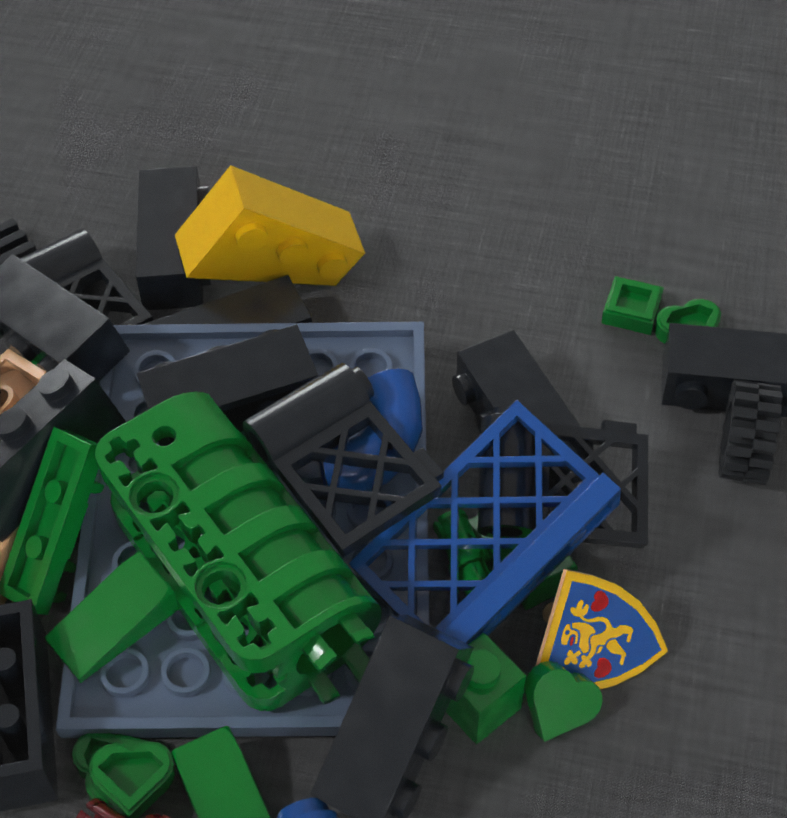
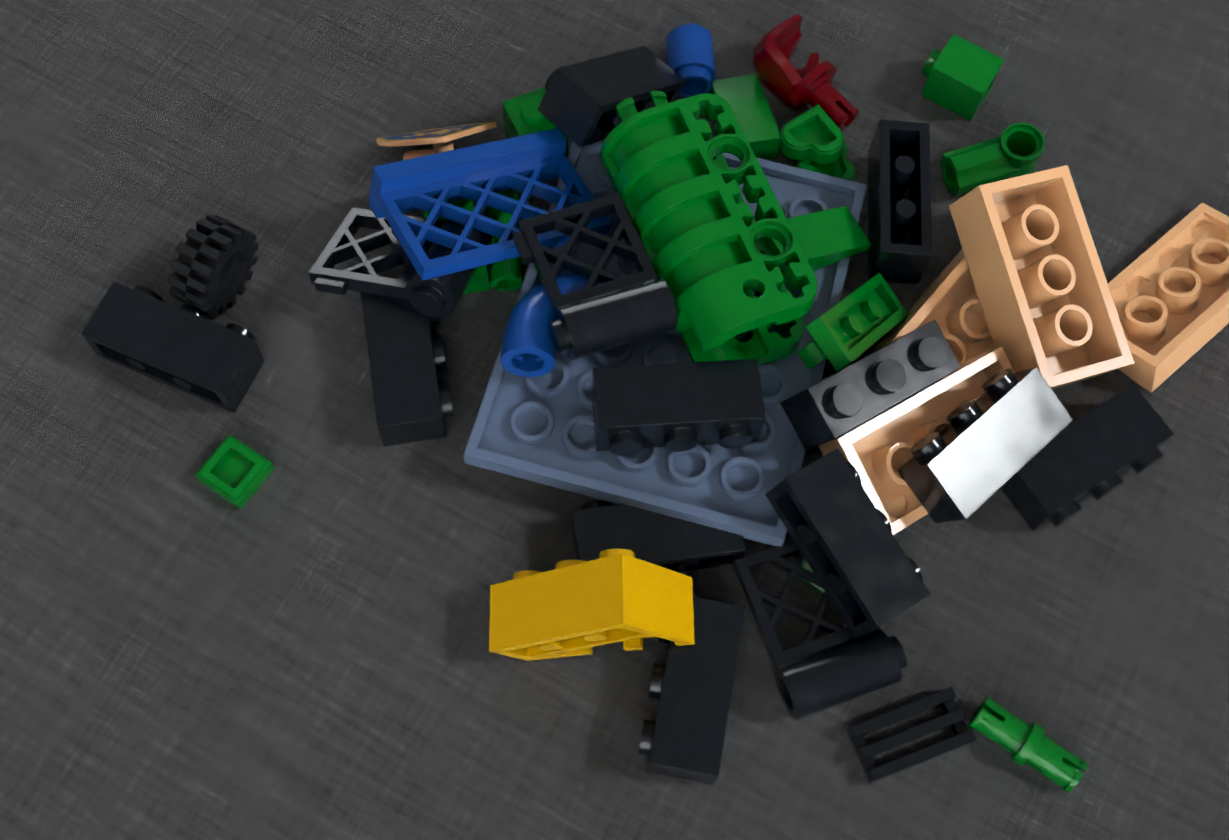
camera: 170 degrees left, 15 degrees up
(560, 699) = (474, 113): green tile -> none
(694, 312) = (190, 429): green tile -> none

